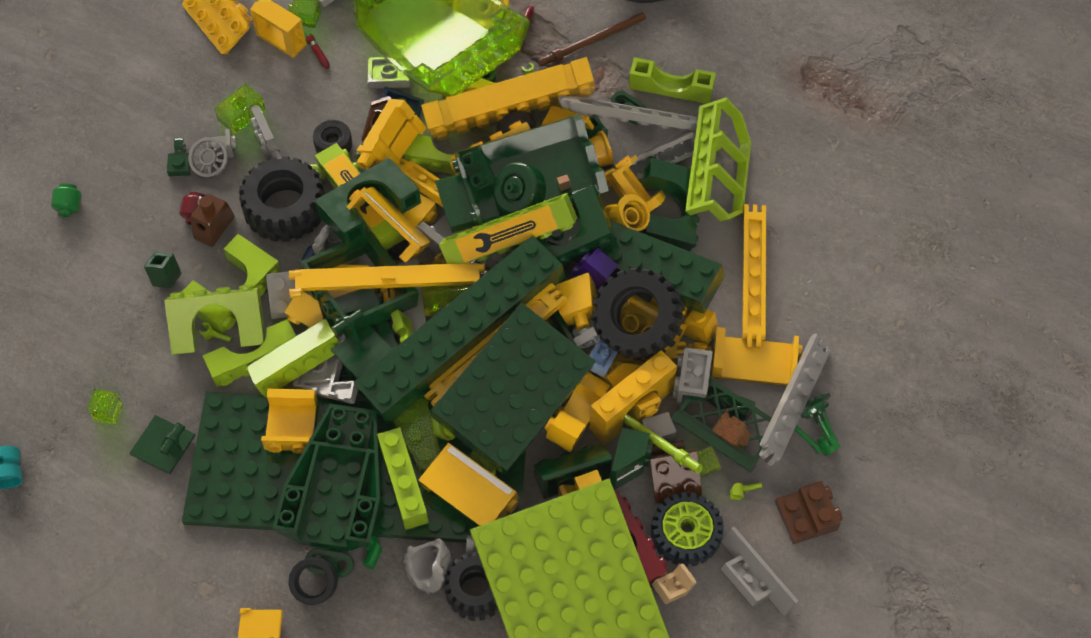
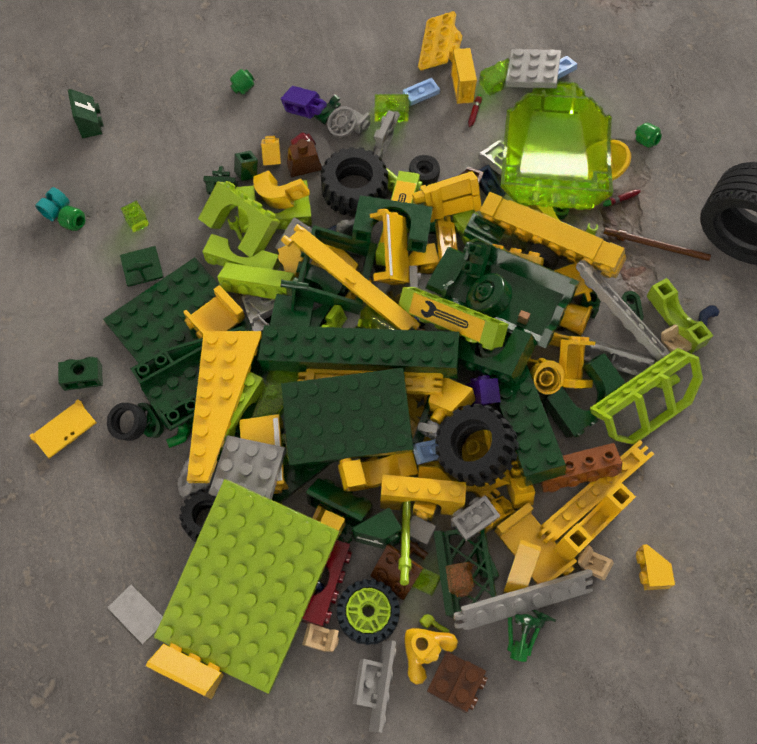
camera: 45 degrees right, 5 degrees up
(41, 463) = (71, 218): none -> green head
(145, 312) = (223, 176): none -> dark green hips
(153, 169) = (303, 102): none -> dark purple brick
(169, 237) = (271, 150): none -> yellow slope
(216, 598) = (89, 378): none -> dark green brick
(229, 269) = (279, 196): none -> yellow arch
(251, 70) = (422, 91): none -> light blue plate
(367, 458) = (221, 380): none -> yellow wing
(445, 144) = (483, 230): none -> dark green plate
(469, 504) = (249, 465): none -> light grey plate
(688, 105) = (672, 340): none -> tan bracket
(689, 60) = (710, 311): none -> dark blue arm
(733, 254) = (586, 467): none -> dark orange brick
(758, 511) = (423, 648): none -> yellow head
(764, 378) = (522, 566): none -> yellow slope
(781, 312) = (594, 522): none -> yellow arch
(811, 325) = (597, 563): none -> tan bracket
(856, 290) = (655, 570): none -> yellow slope

